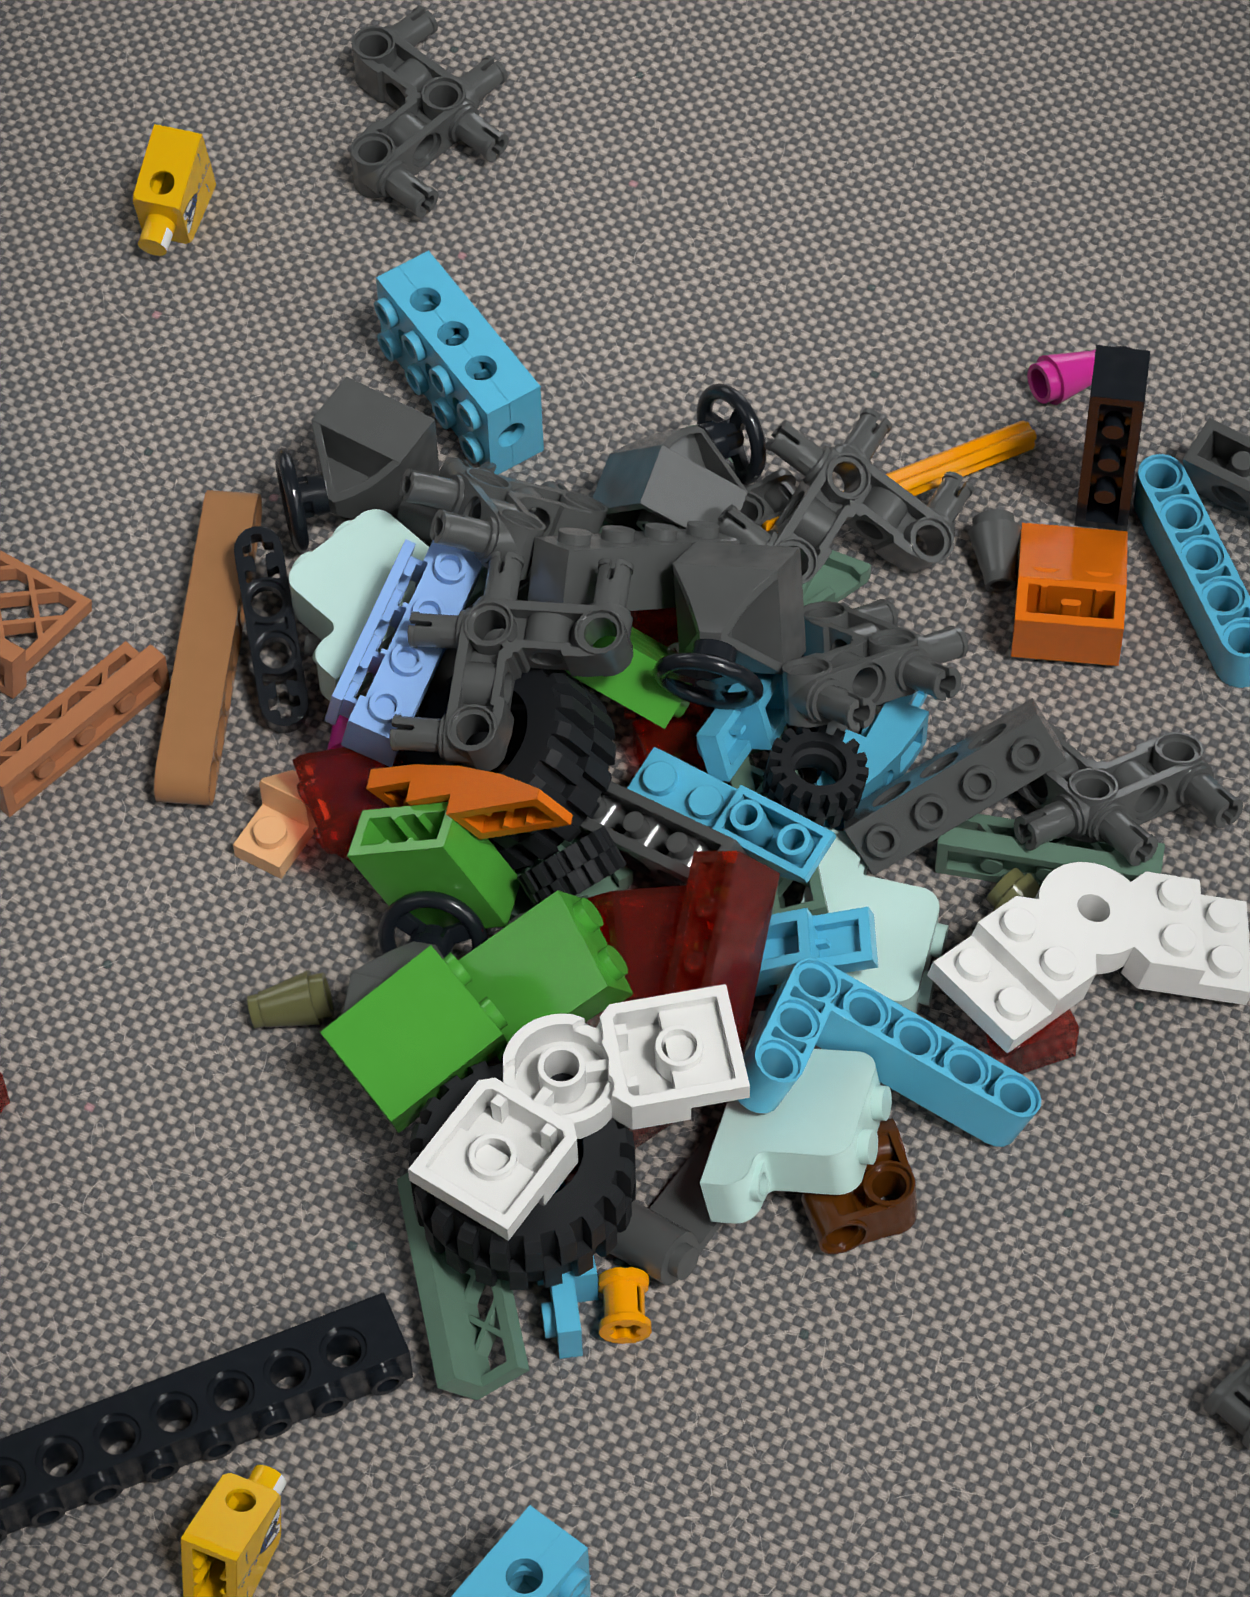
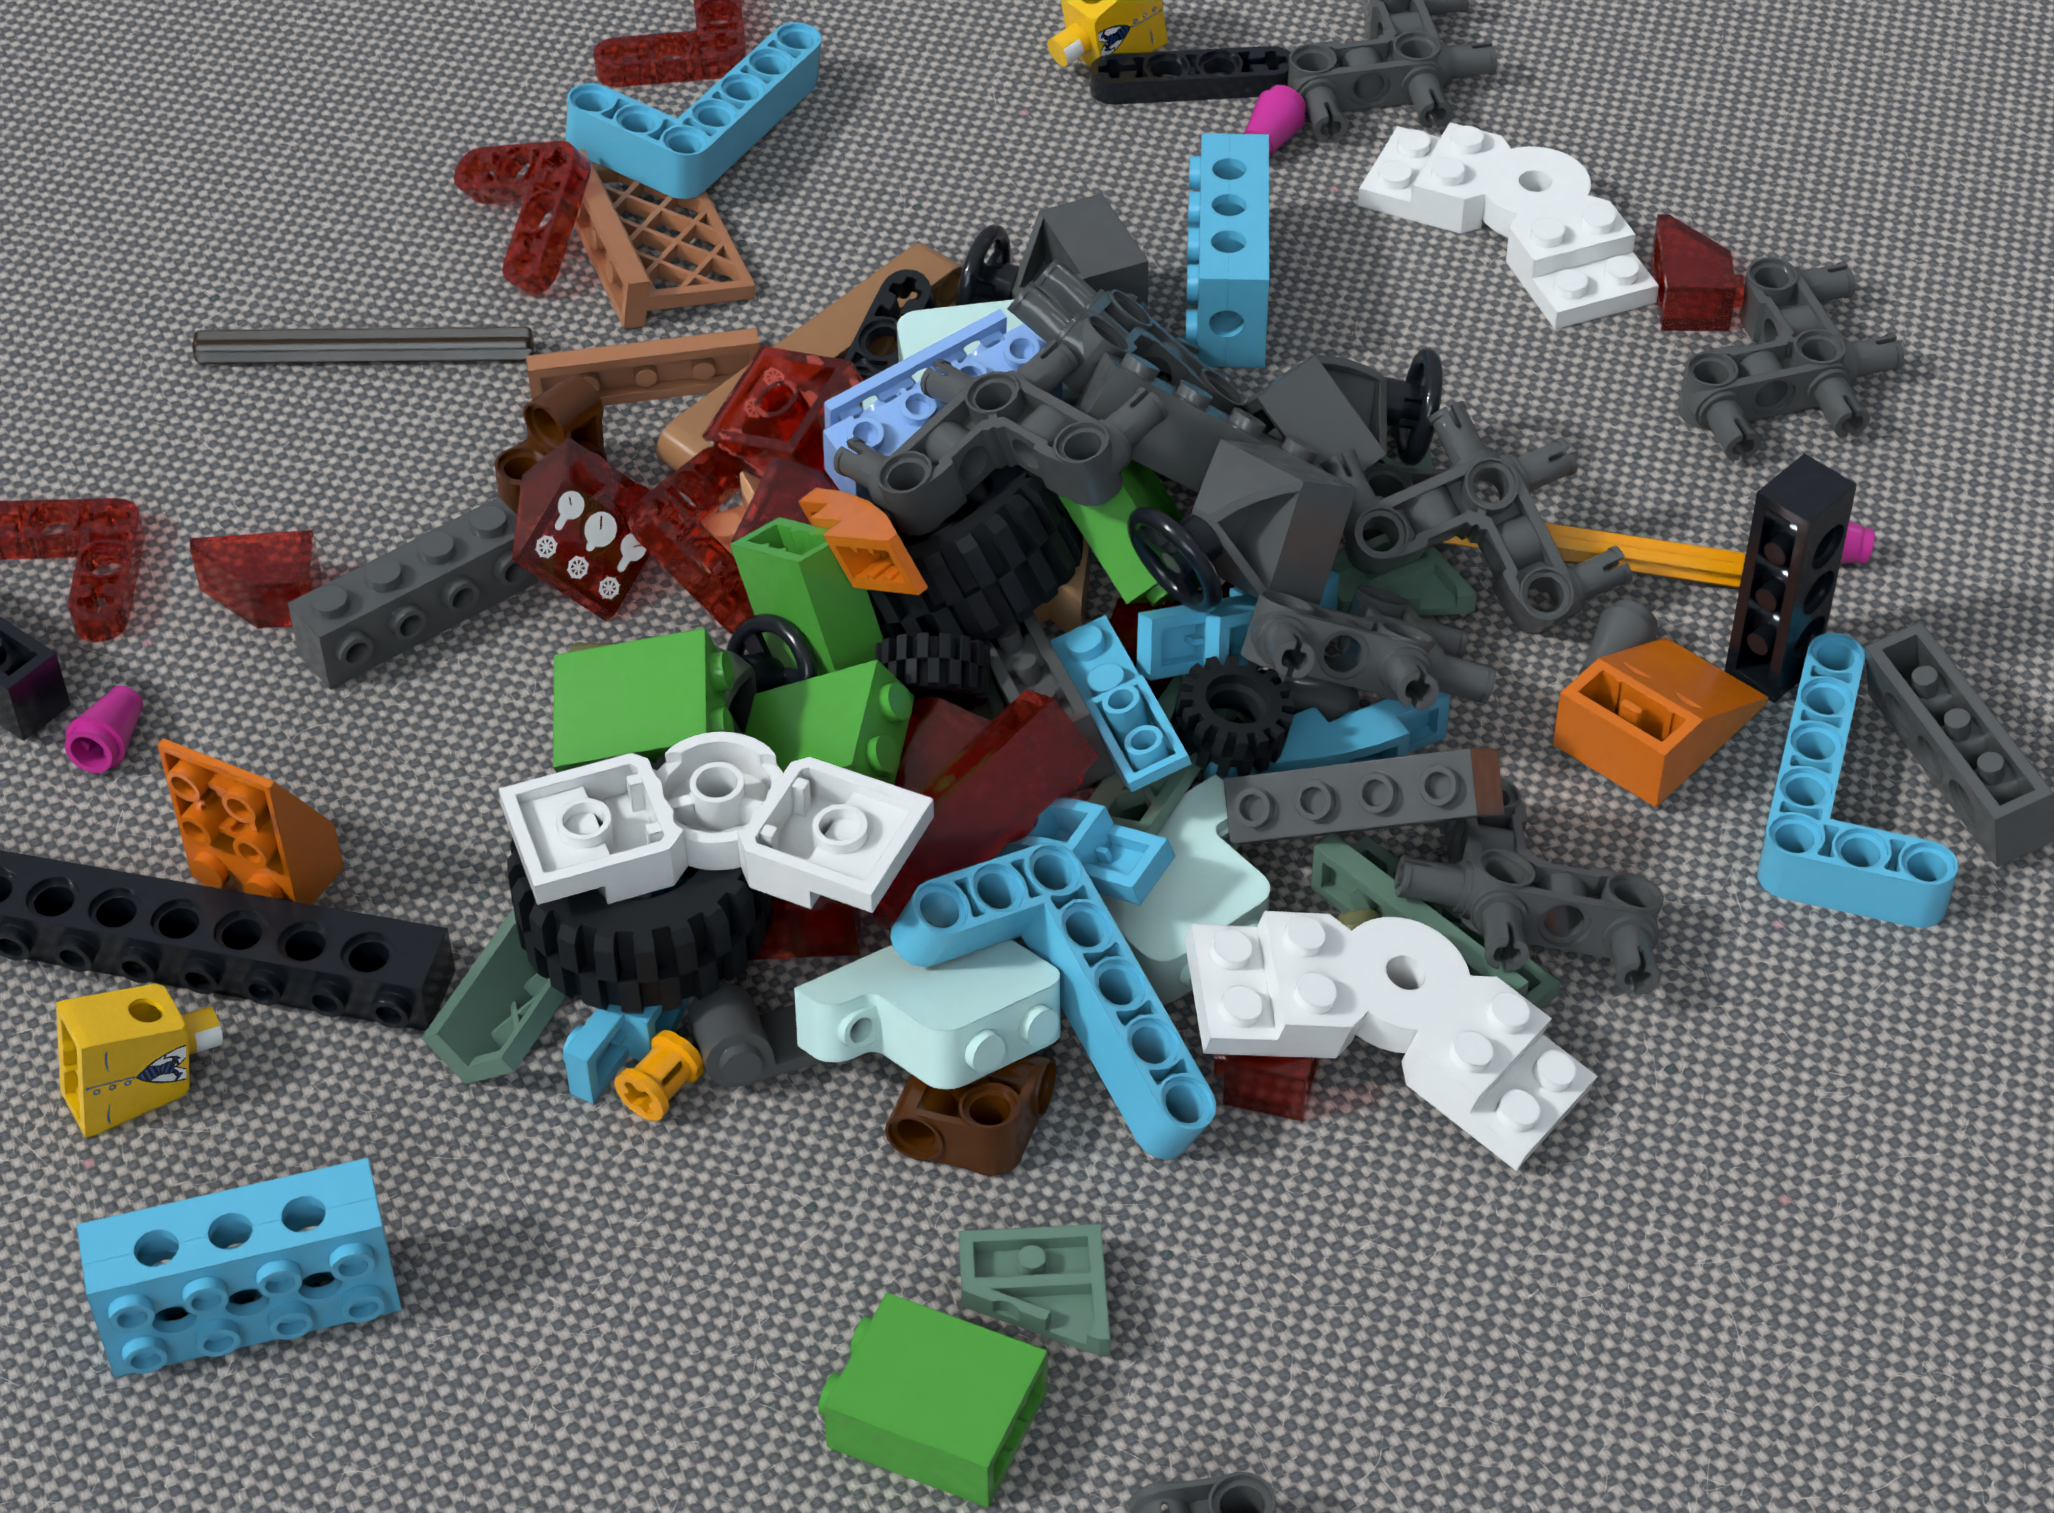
camera: 35 degrees right, 10 degrees down
(82, 1033) = (409, 594): none -> dark grey brick
(84, 848) = (551, 418): none -> reddish brown piece
(164, 1317) = (248, 829): none -> orange slope
(180, 899) = (577, 528): none -> clear red slope
(256, 865) = (675, 534): none -> clear red beam
(257, 709) = (780, 408): none -> clear red slope
(263, 202) = (1132, 79): none -> black beam
(375, 221) = (1279, 114): none -> dark pink cone
(627, 183) = (1561, 241): none -> white plate
(804, 197) = (1693, 279): none -> clear red slope
(939, 228) = (1793, 368): none -> dark grey pin
(1015, 1288) = (1040, 1281): none -> sand green wing
(1020, 1417) = (934, 1398): none -> bright green brick

